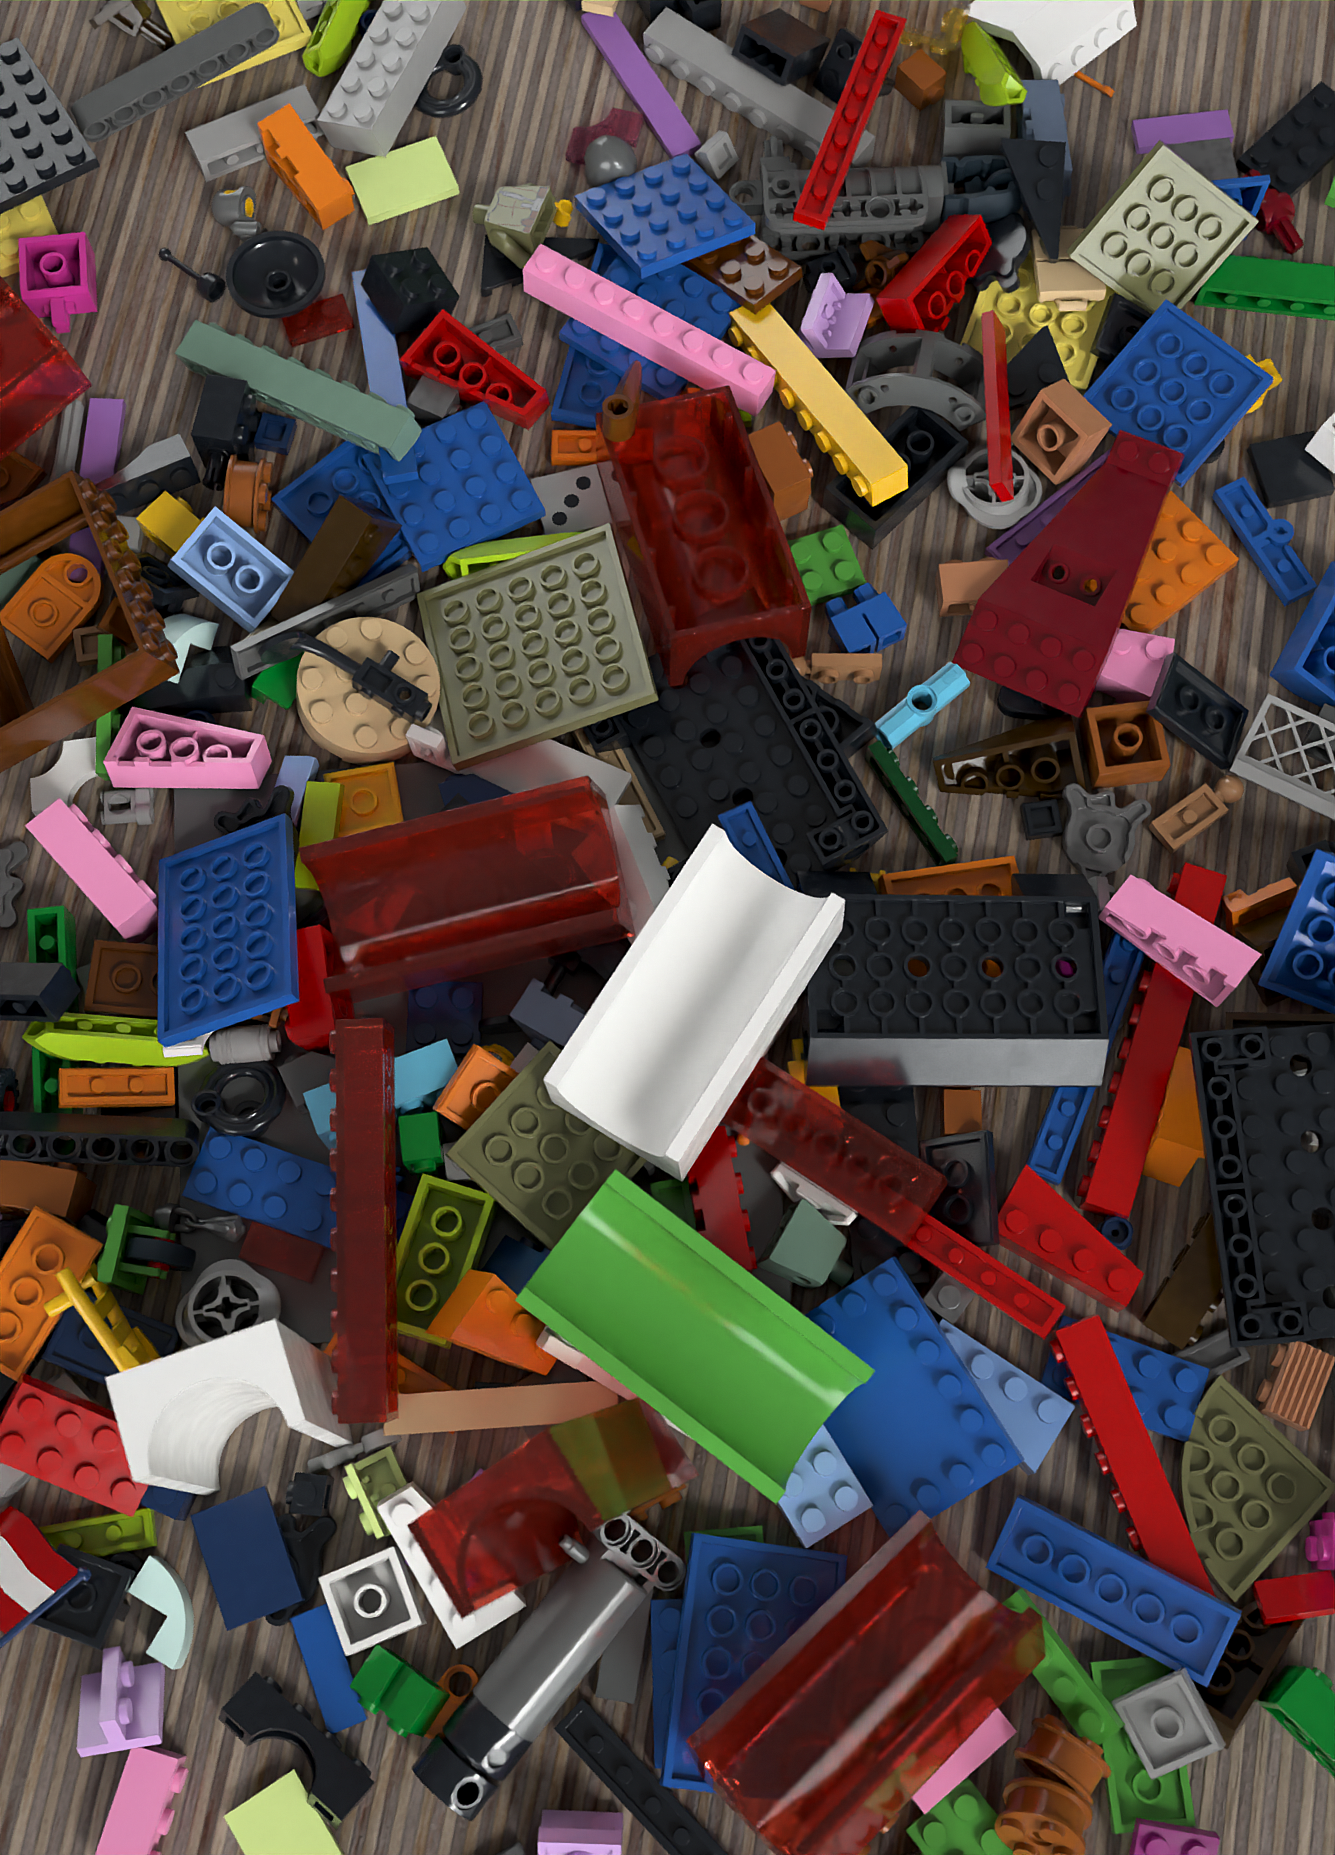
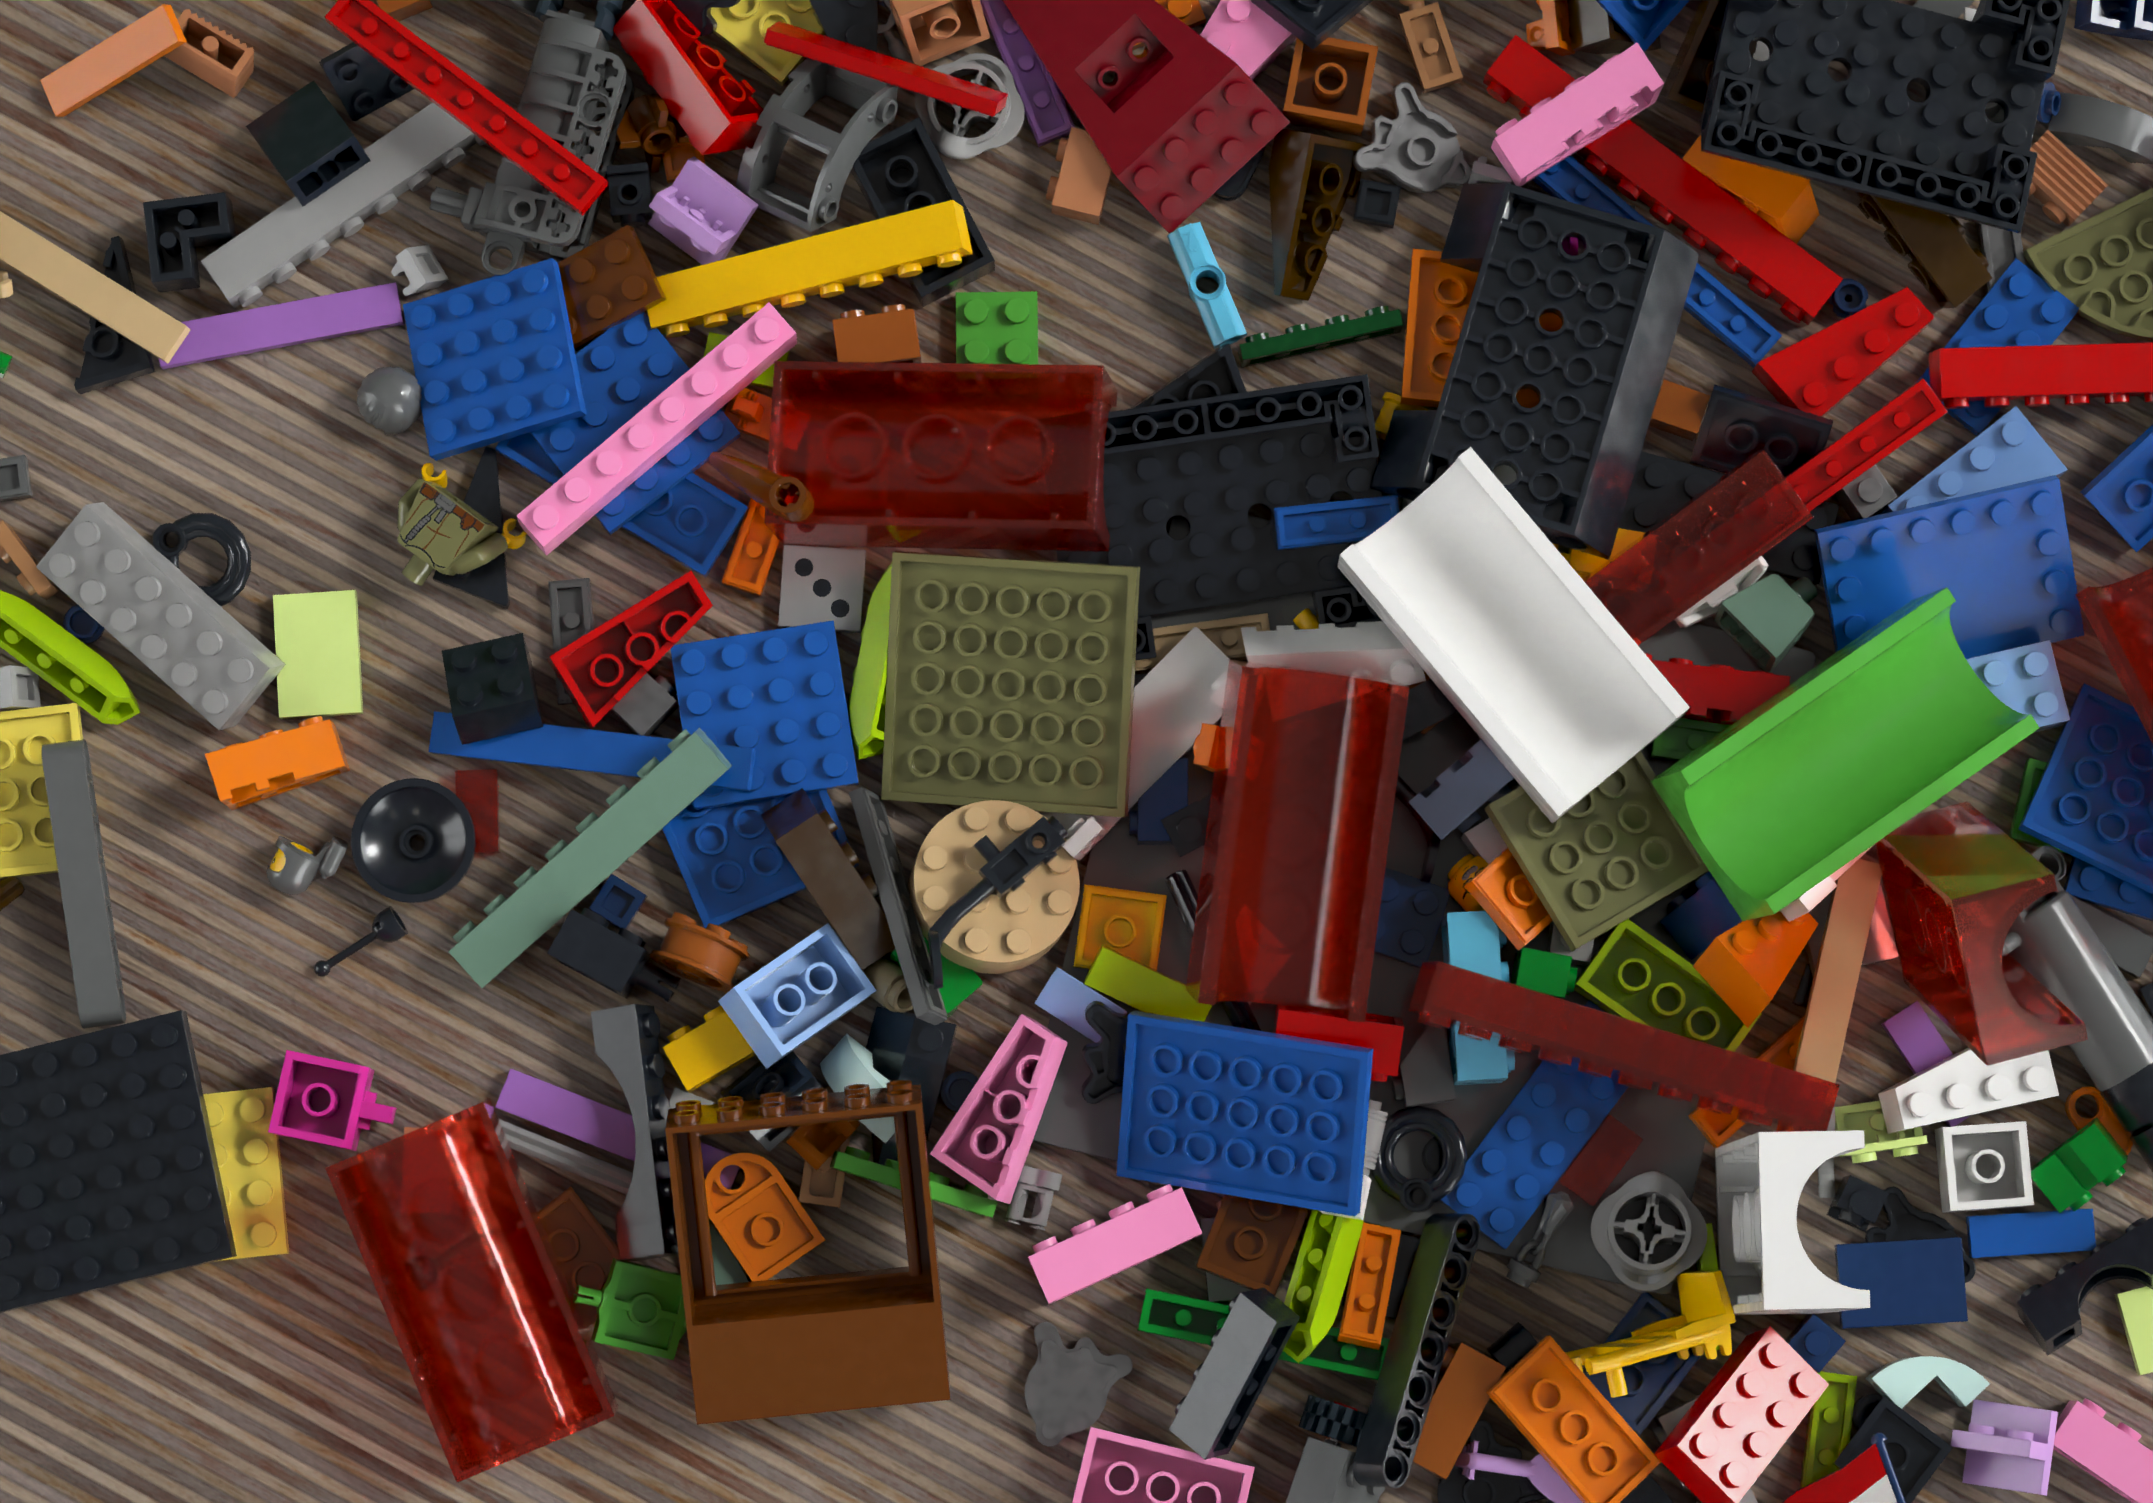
camera: 75 degrees left, 10 degrees up
(71, 771) = (983, 1273): white tile -> none
(139, 1251) = (1552, 1315): bright green plate -> none
(235, 138) = (193, 813): light grey brick -> none
(618, 123) = (338, 375): clear pink tile -> none
(832, 667) = (1129, 367): medium nougat plate -> none
(868, 625) = (1092, 309): blue hips -> none

